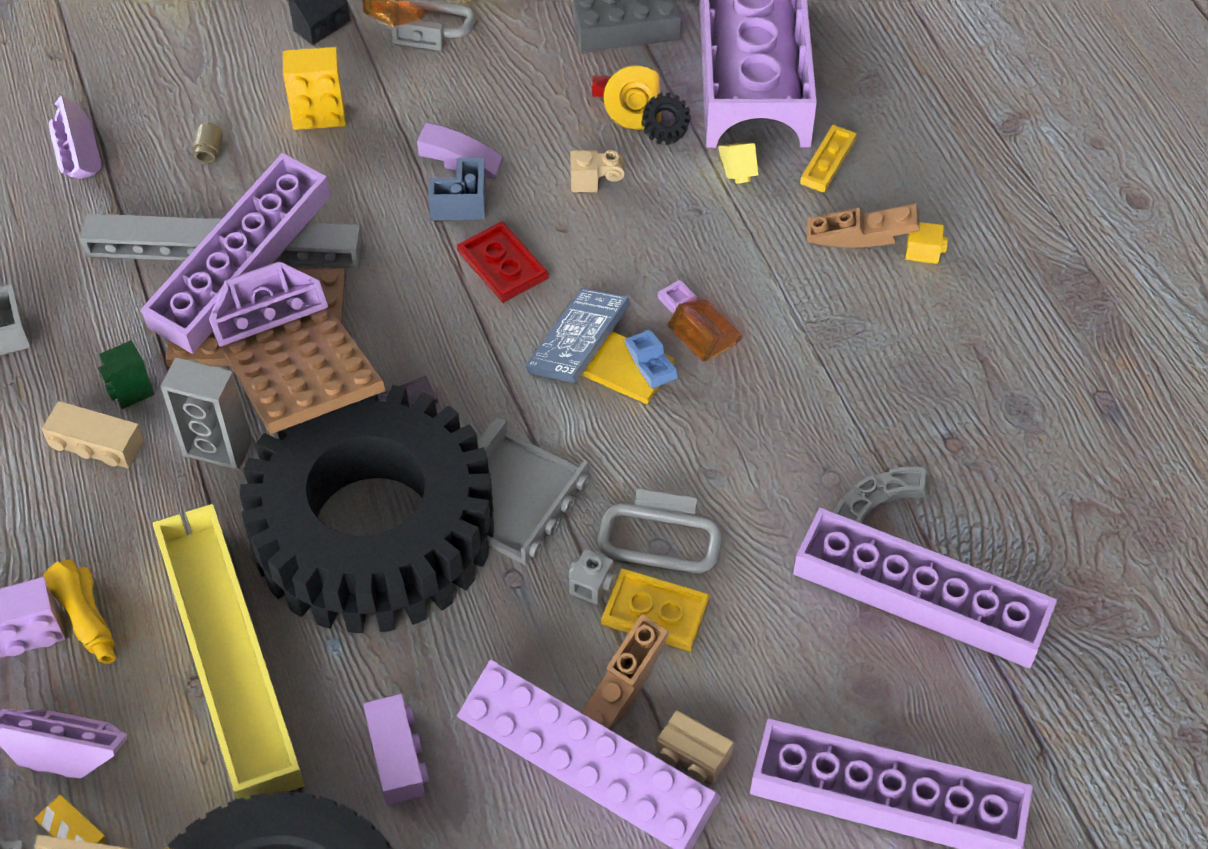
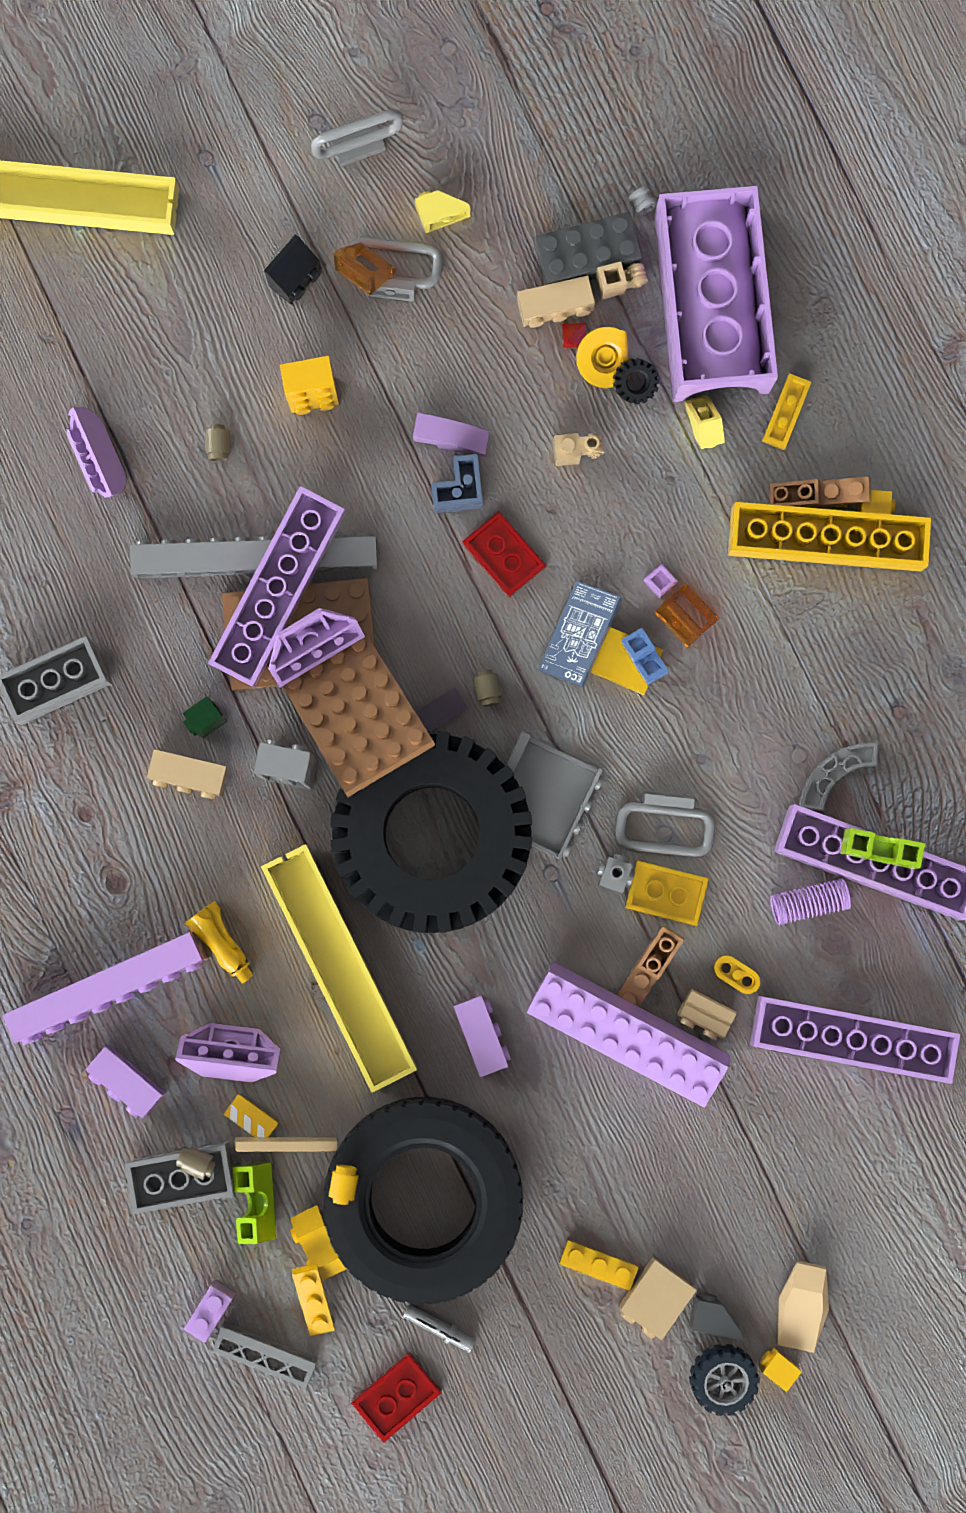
camera: 10 degrees left, 30 degrees up
(463, 378) = (487, 688): none -> dark tan brick
(587, 53) = (555, 301): none -> tan brick
(653, 42) = (614, 280): none -> tan brick
(740, 705) = (736, 974): none -> yellow plate
(798, 630) = (780, 908): none -> lavender piece
(872, 262) = (829, 536): none -> yellow brick
(945, 559) = (882, 849): none -> lime arch

